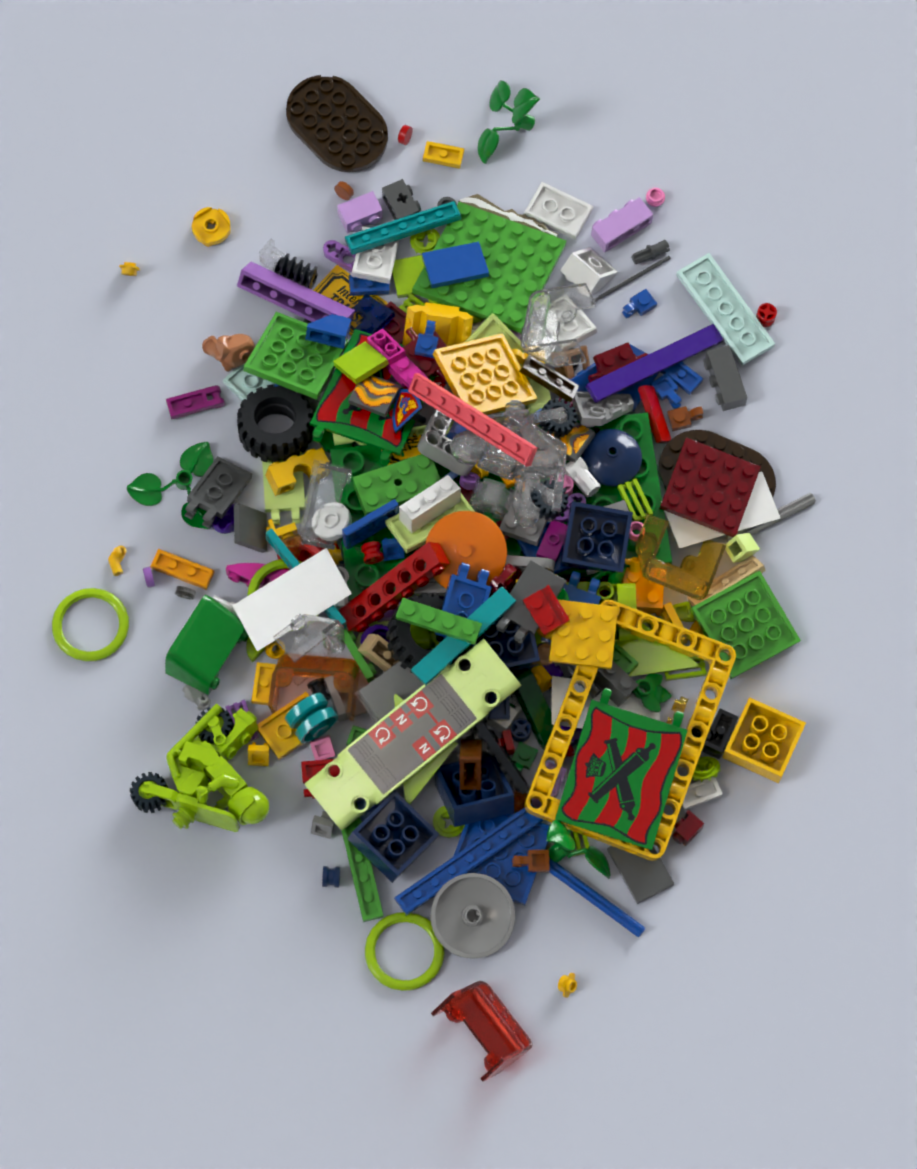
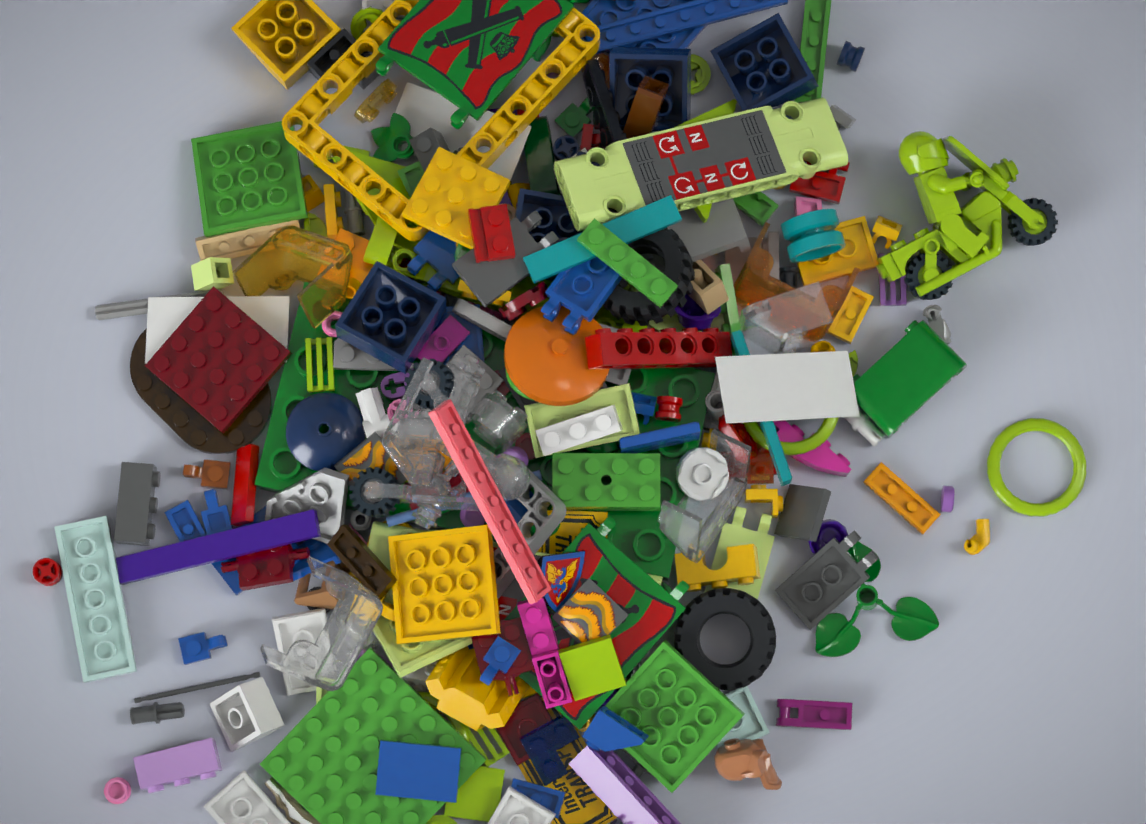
camera: 155 degrees left, 10 degrees up
(185, 592) = (908, 462): clear smoke tile -> none

